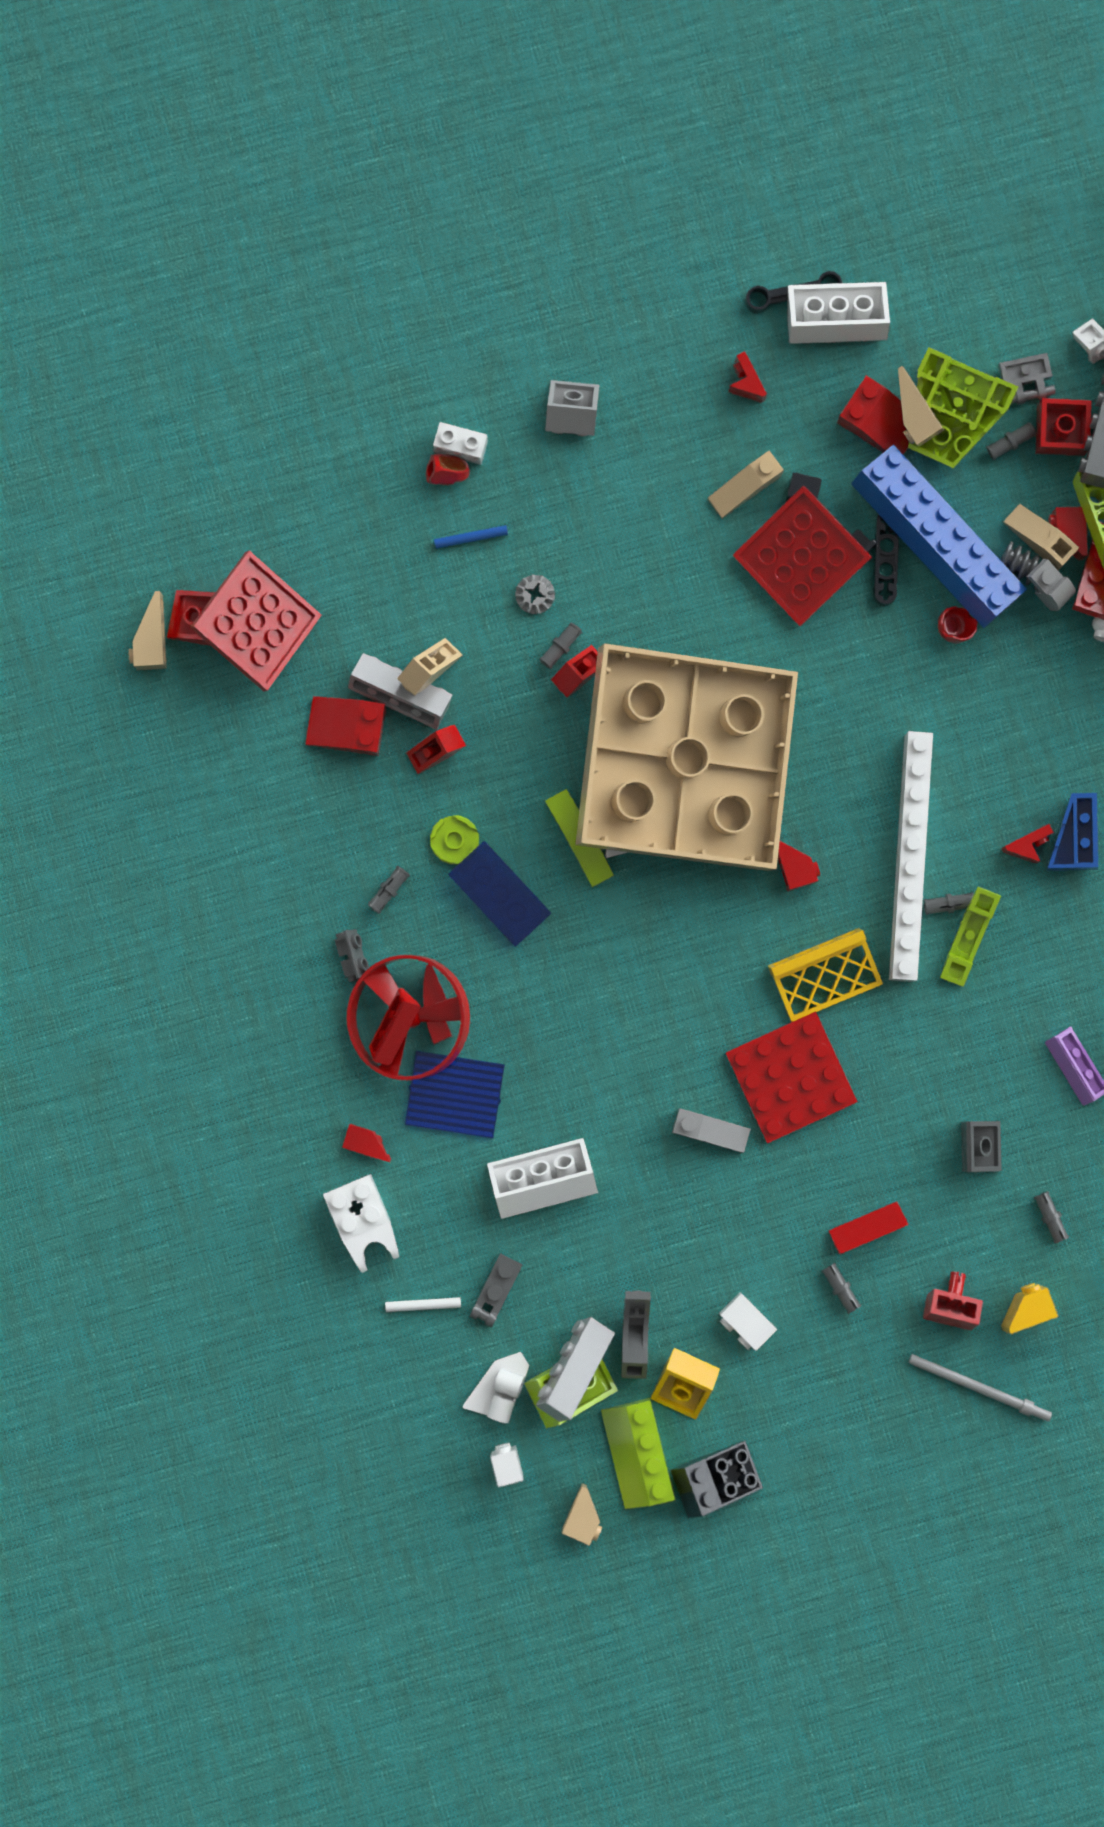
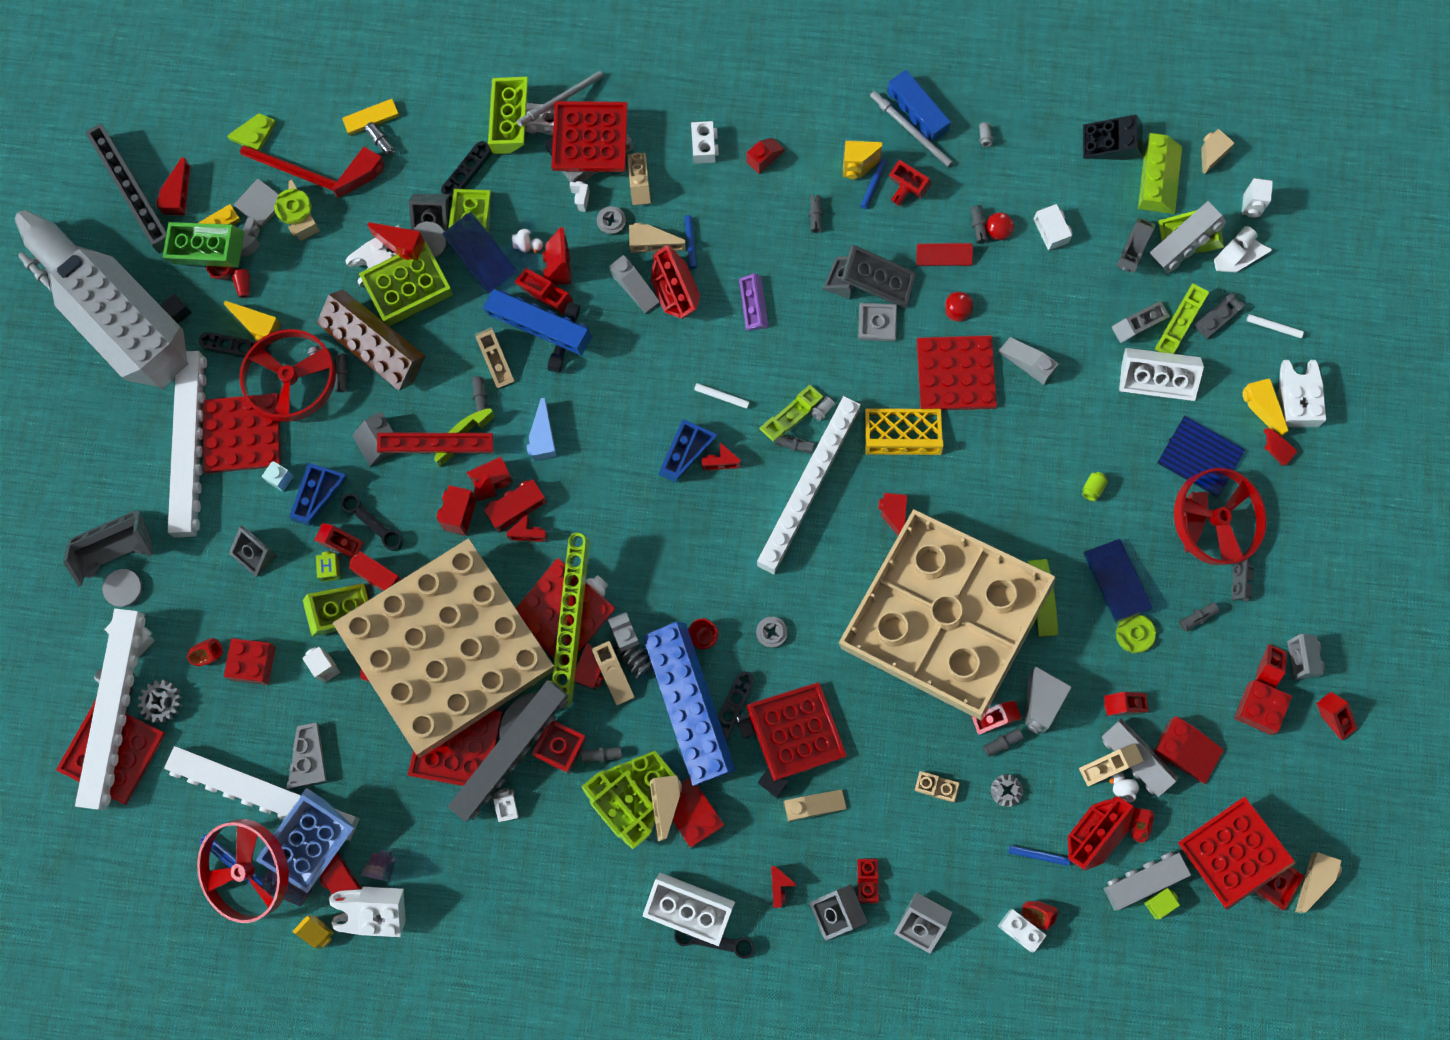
camera: 150 degrees left, 10 degrees down
(190, 836) = (1337, 715): none -> red slope
(248, 889) = (1305, 657): none -> light grey slope
(278, 809) = (1263, 707): none -> red brick
(284, 863) = (1272, 666): none -> red slope
(315, 539) = (1162, 903): none -> lime brick
(341, 556) = (1146, 881): none -> light grey brick
(369, 618) = (1141, 824): none -> red rock
(394, 1027) = (1235, 511): red slope -> none
(401, 649) = (1124, 787): none -> white animal
(405, 1194) = (1264, 403): none -> yellow slope
(415, 584) = (1099, 832): none -> red wedge
(533, 709) = (1043, 699): none -> light grey slope
(542, 1257) = (1182, 319): none -> lime slope
(569, 998) = (1094, 486): none -> lime brick
(591, 1238) = (1140, 321): none -> light grey slope
(615, 565) = (937, 787): none -> tan slope
(651, 428) = (867, 880): none -> red slope
(670, 379) = (838, 912): none -> dark grey slope
(685, 1383) = (1110, 205): yellow slope -> none
(814, 1297) = (999, 226): none -> red hair
(822, 1166) = (958, 306): none -> red hair
(881, 1417) = (985, 135): none -> light grey pin
(887, 656) = (769, 623): none -> light grey gear
(914, 1104) = (877, 322): none -> light grey tile
(934, 961) = (819, 412): none -> light grey pin
(938, 1156) = (878, 276): none -> dark grey tile
(983, 1421) = (918, 106): none -> blue brick
(996, 1316) = (873, 184): none -> blue bar
(1025, 371) = (564, 802): flat silver plate -> none
(1063, 928) = (720, 395): none -> white bar

